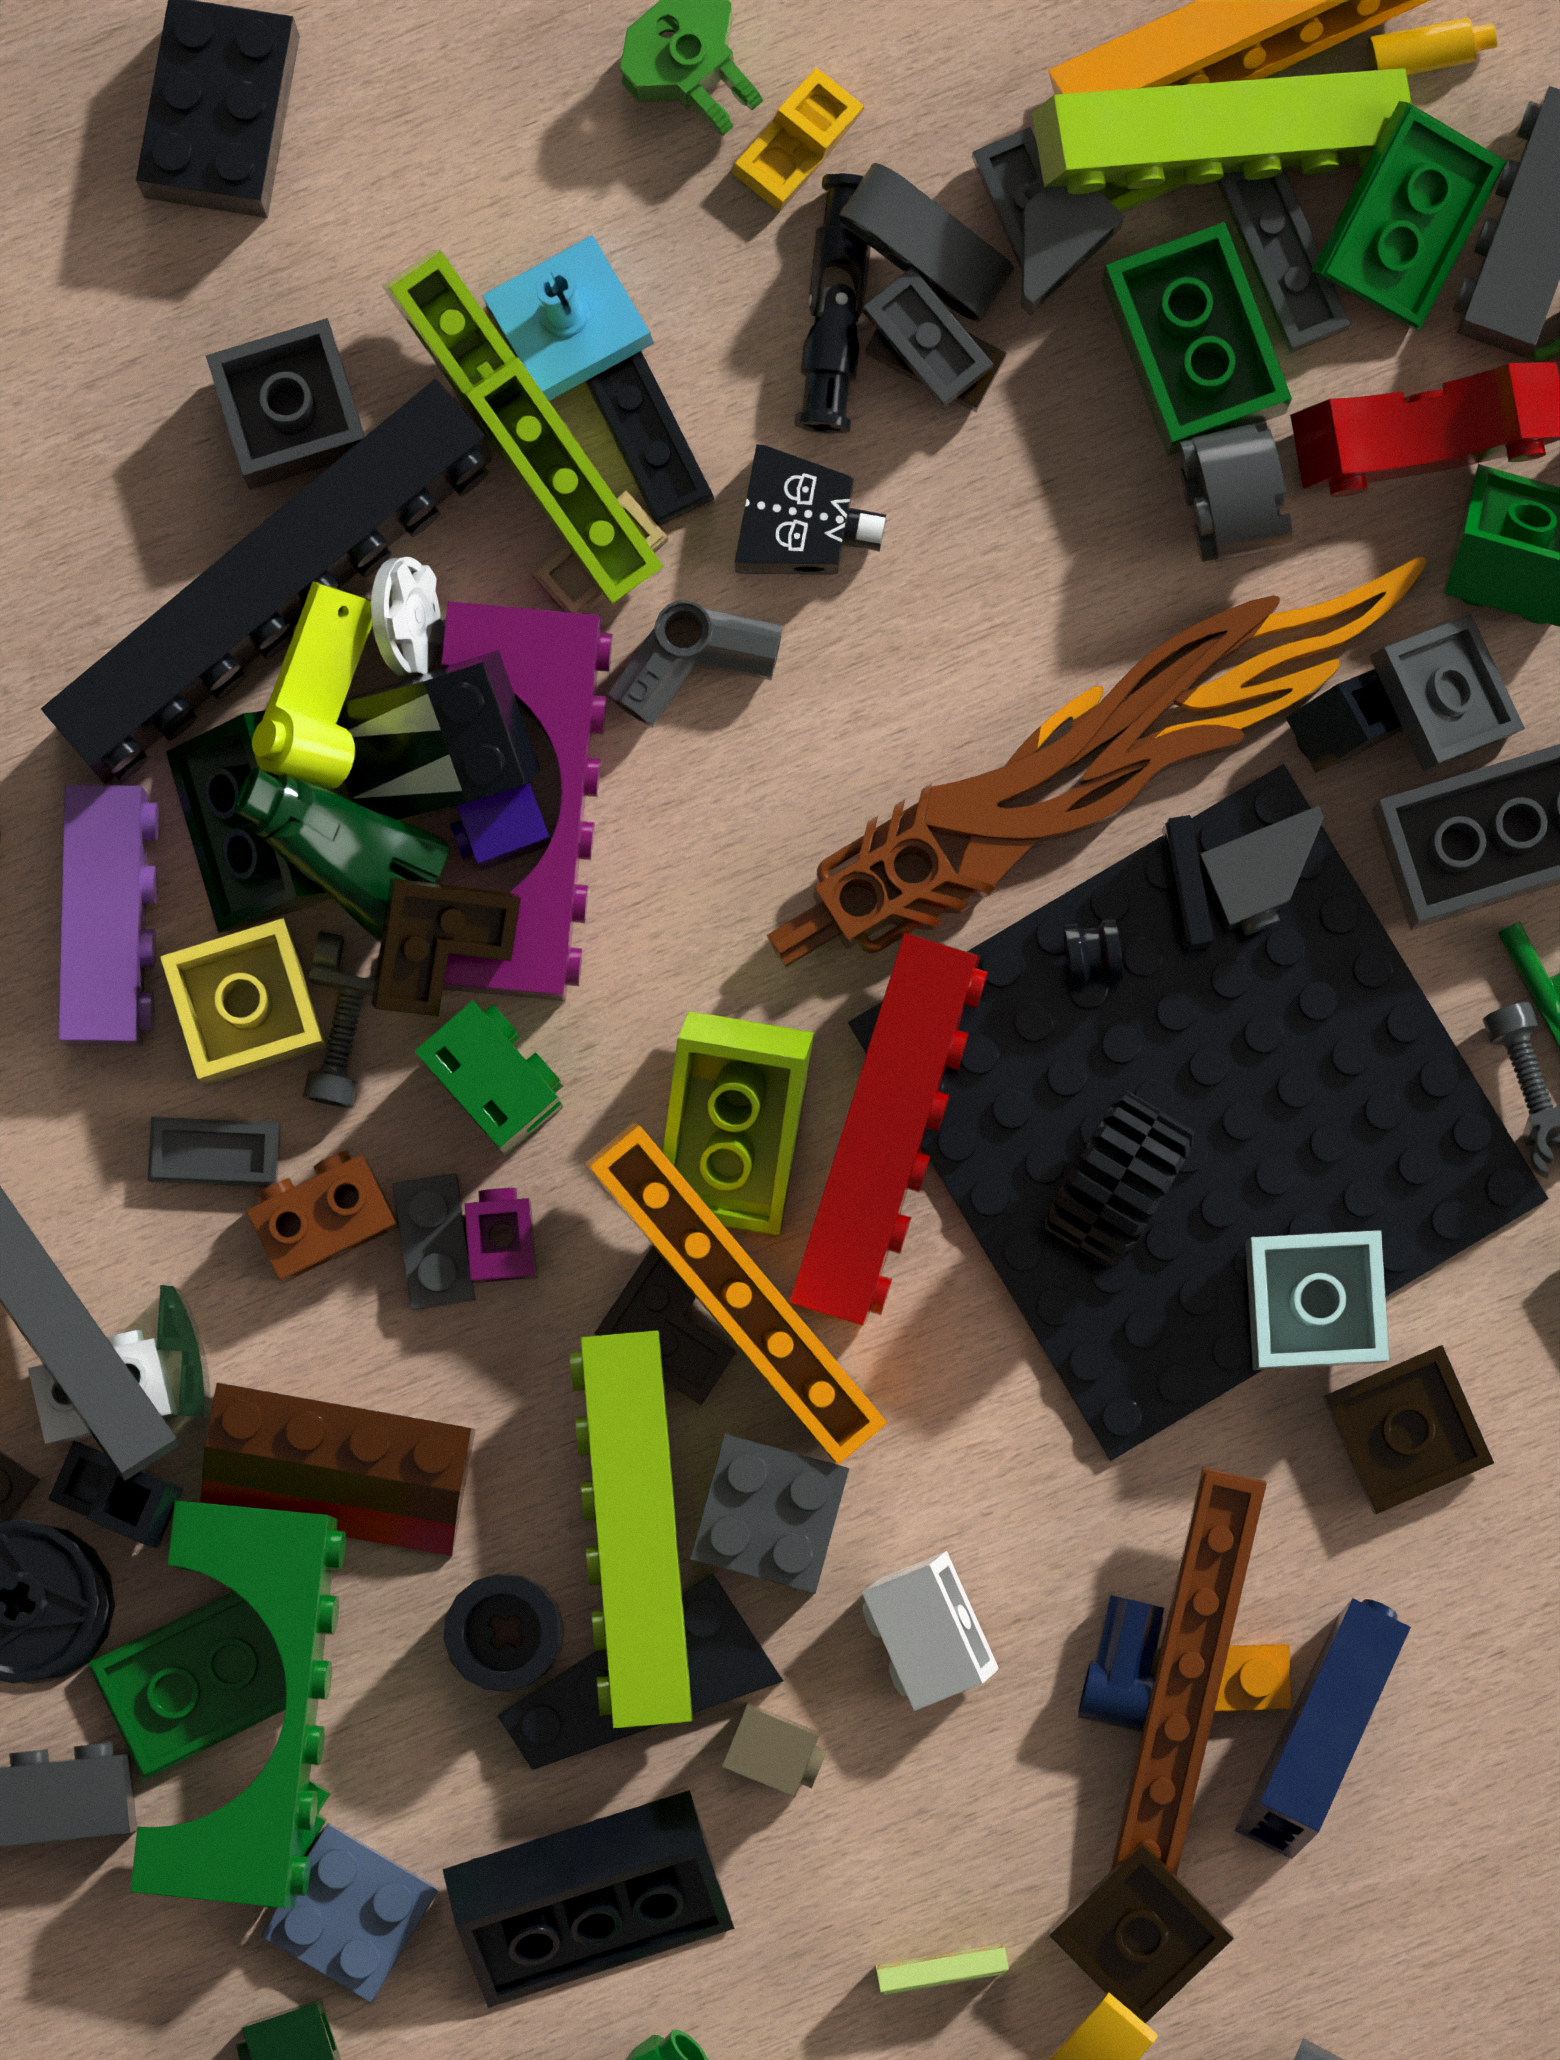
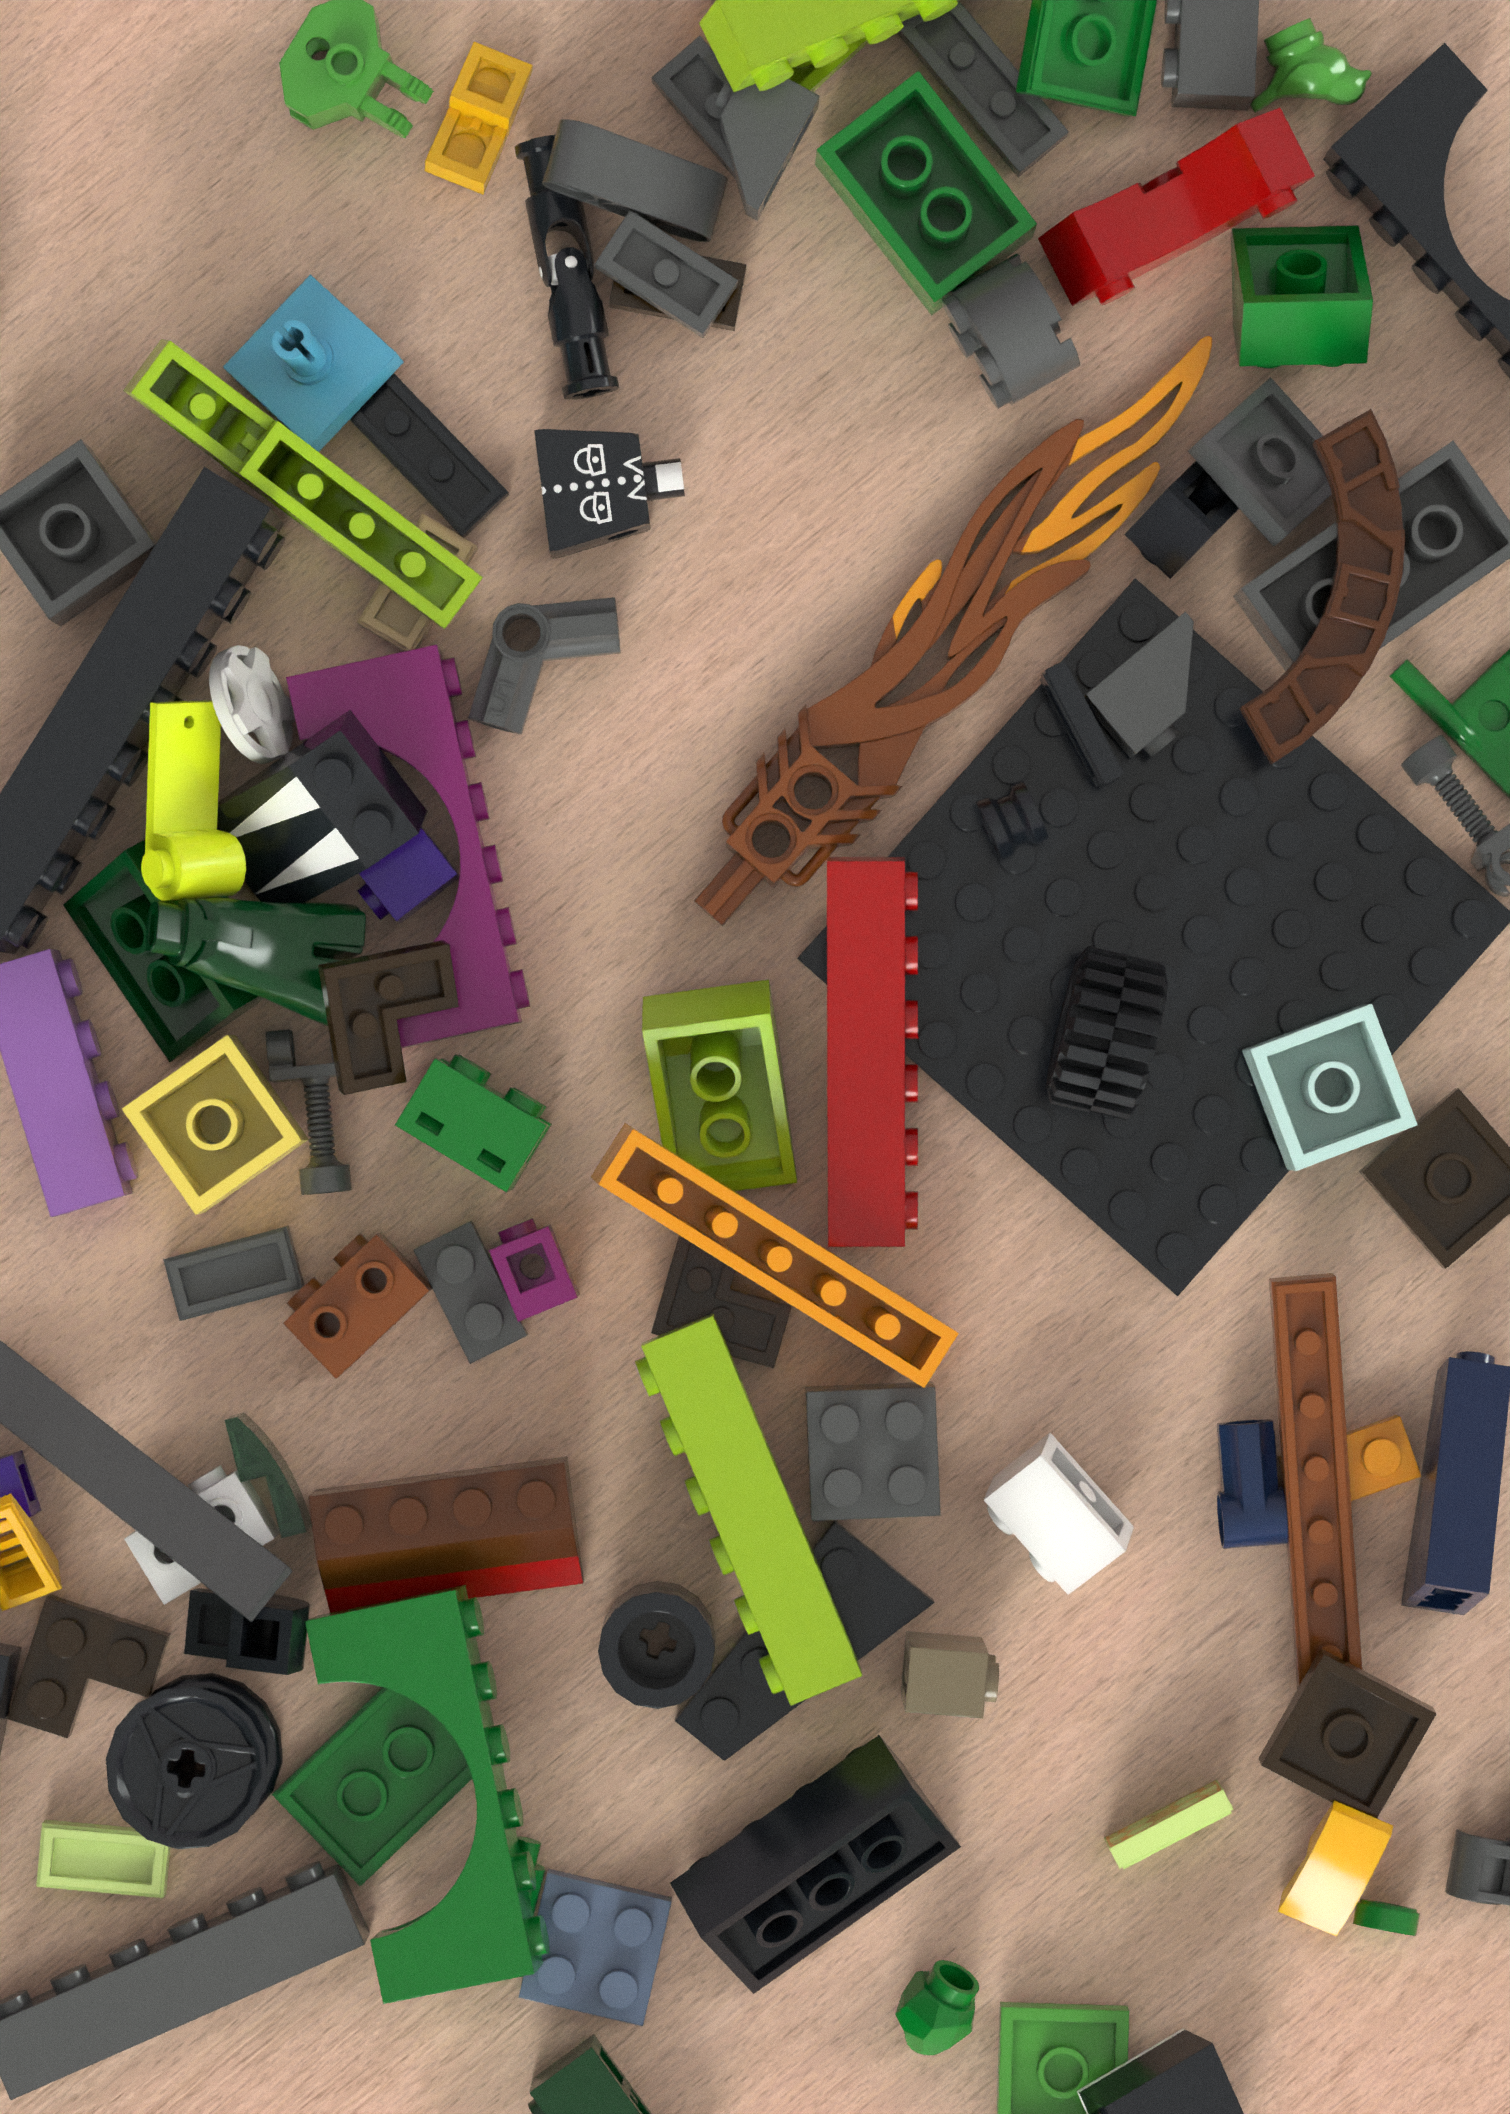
camera: 20 degrees left, 5 degrees up
(1489, 845) = (1360, 596): none -> reddish brown tile

